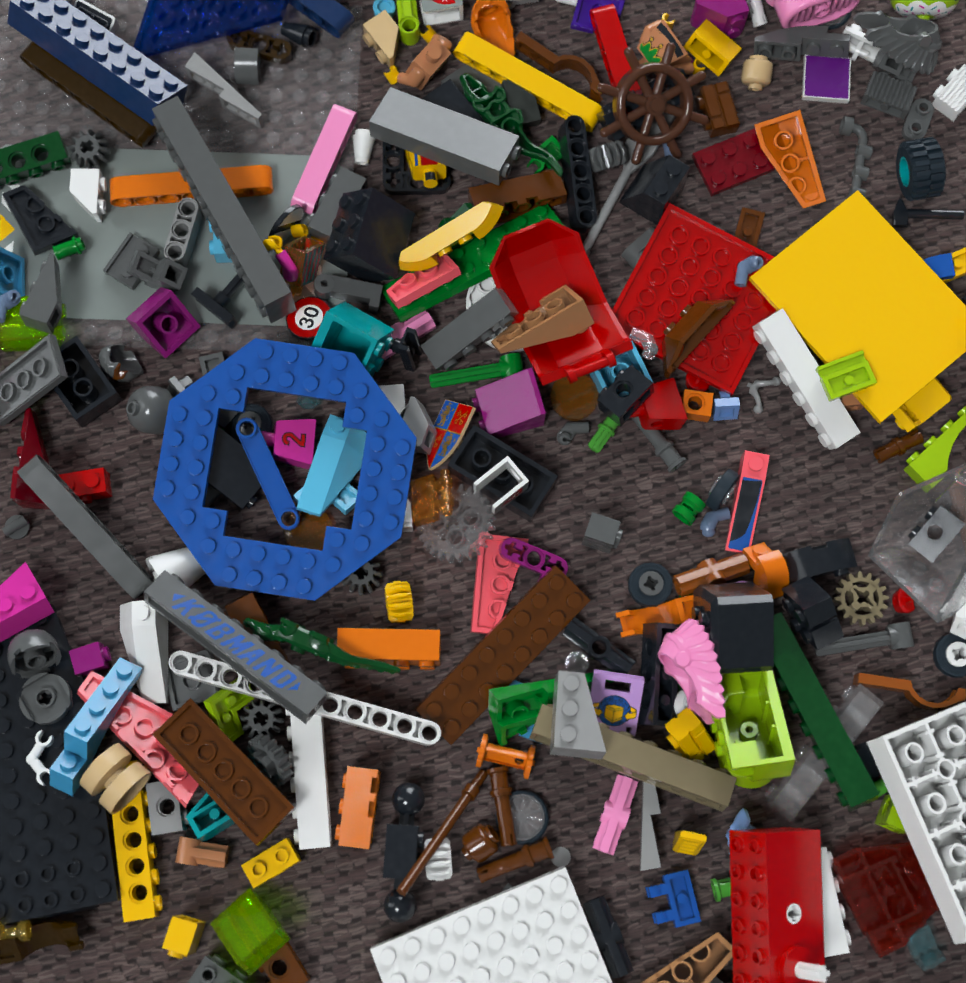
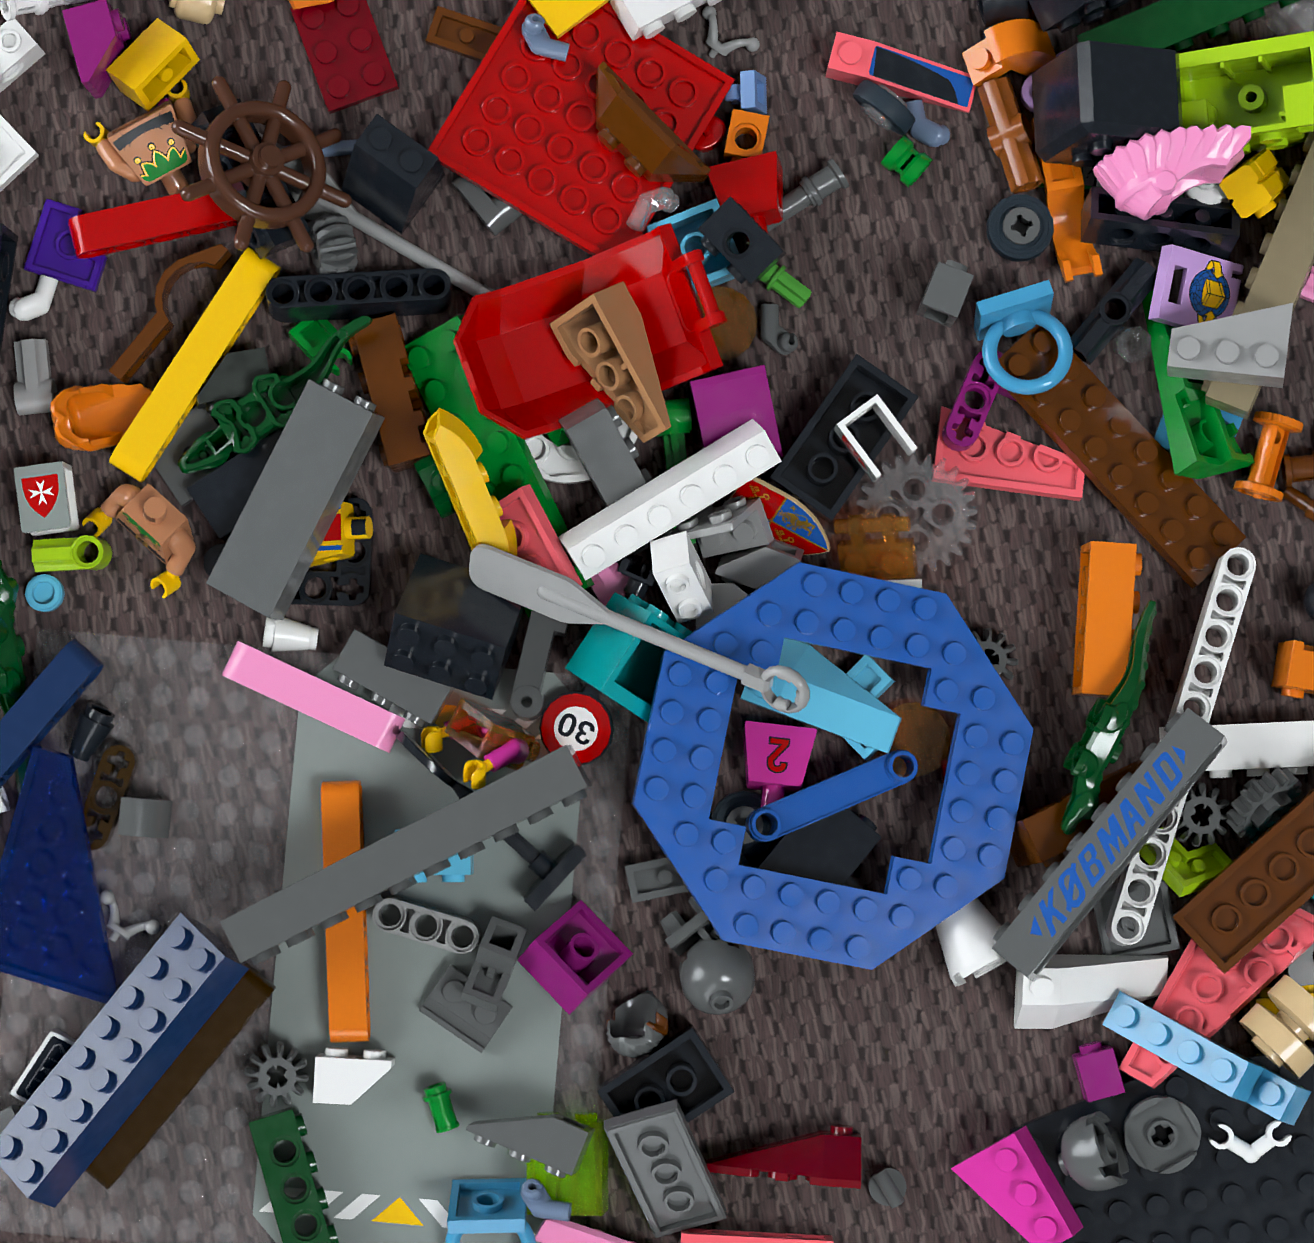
camera: 85 degrees left, 10 degrees up
(36, 221) = (394, 1158): black wing -> none
(85, 526) = (902, 1075): dark grey beam -> none
(89, 484) = (832, 1083): red brick -> none
(183, 54) = (151, 926): none -> light grey piece
(230, 99) = (202, 844): light grey slope -> none
(384, 36) = (99, 594): tan slope -> none
(384, 290) = (570, 603): none -> light grey piece
(399, 601) = (1034, 604): yellow gear -> none
(404, 367) = (681, 577): none -> white brick
(440, 399) = (729, 527): none -> light grey bracket
(455, 358) = (670, 499): none -> white brick
(590, 579) = (1012, 316): none -> dark azure tile
(719, 107) = (257, 64): reddish brown brick -> none

